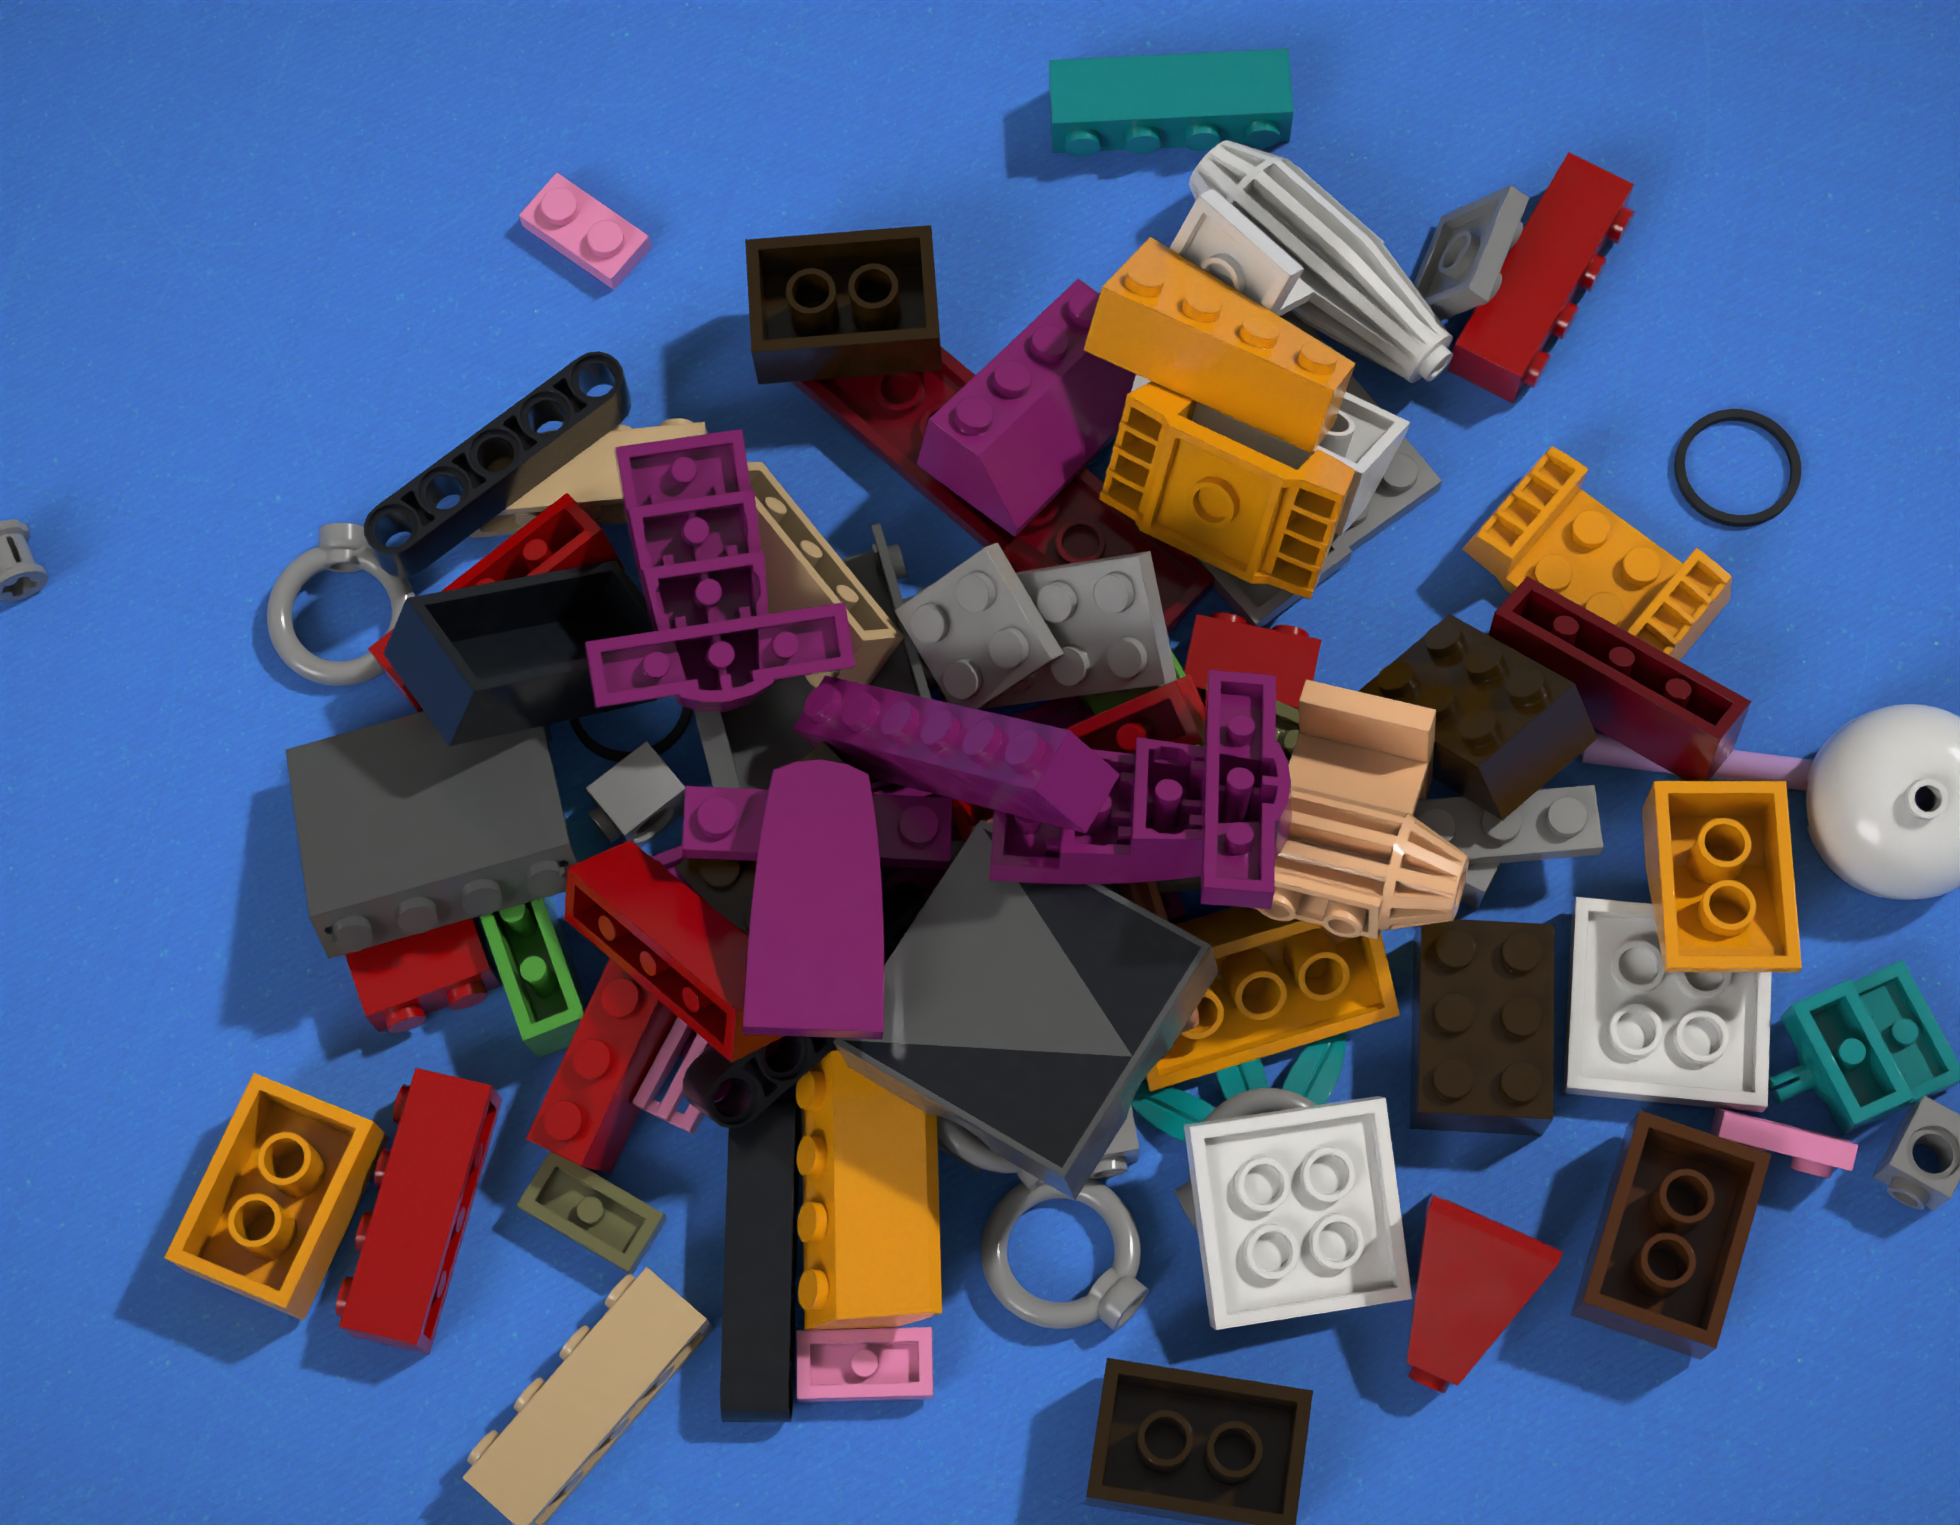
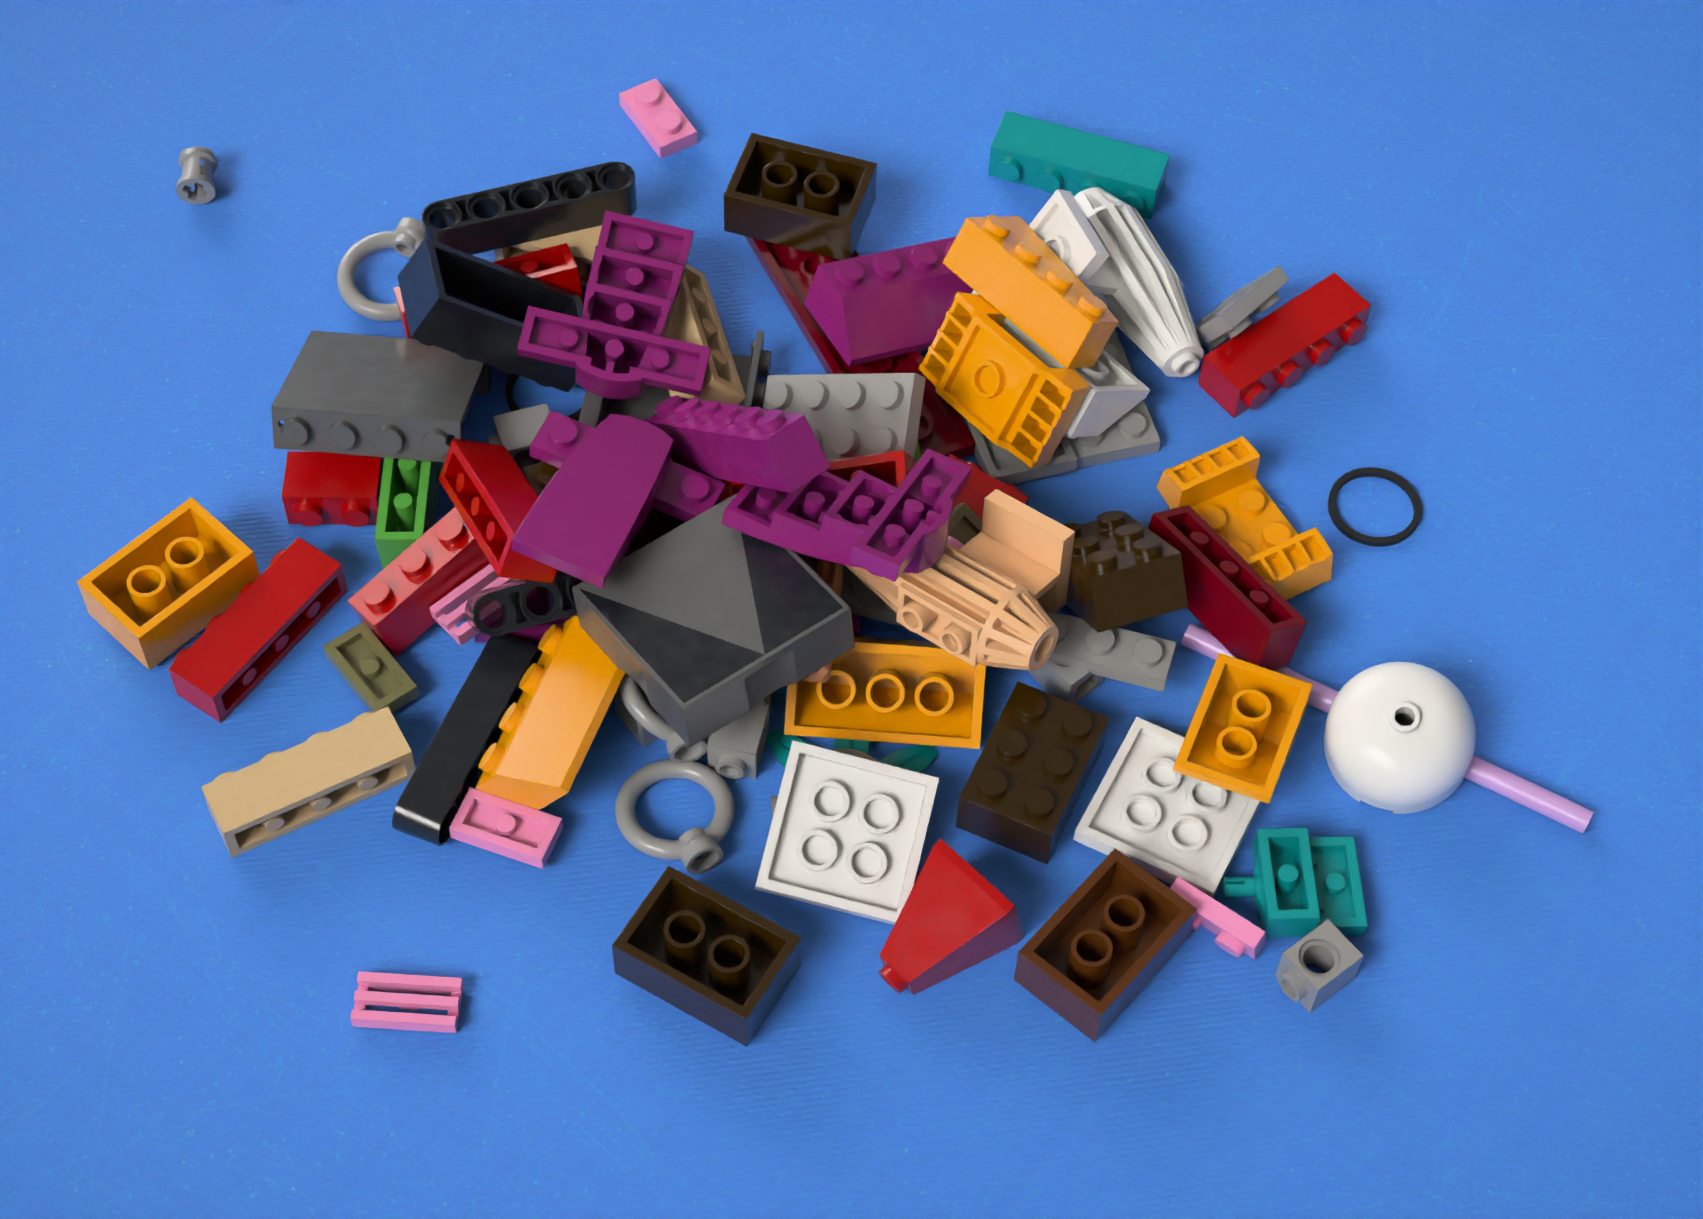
camera: 15 degrees right, 15 degrees down
(979, 630) = (800, 385): light grey plate -> none

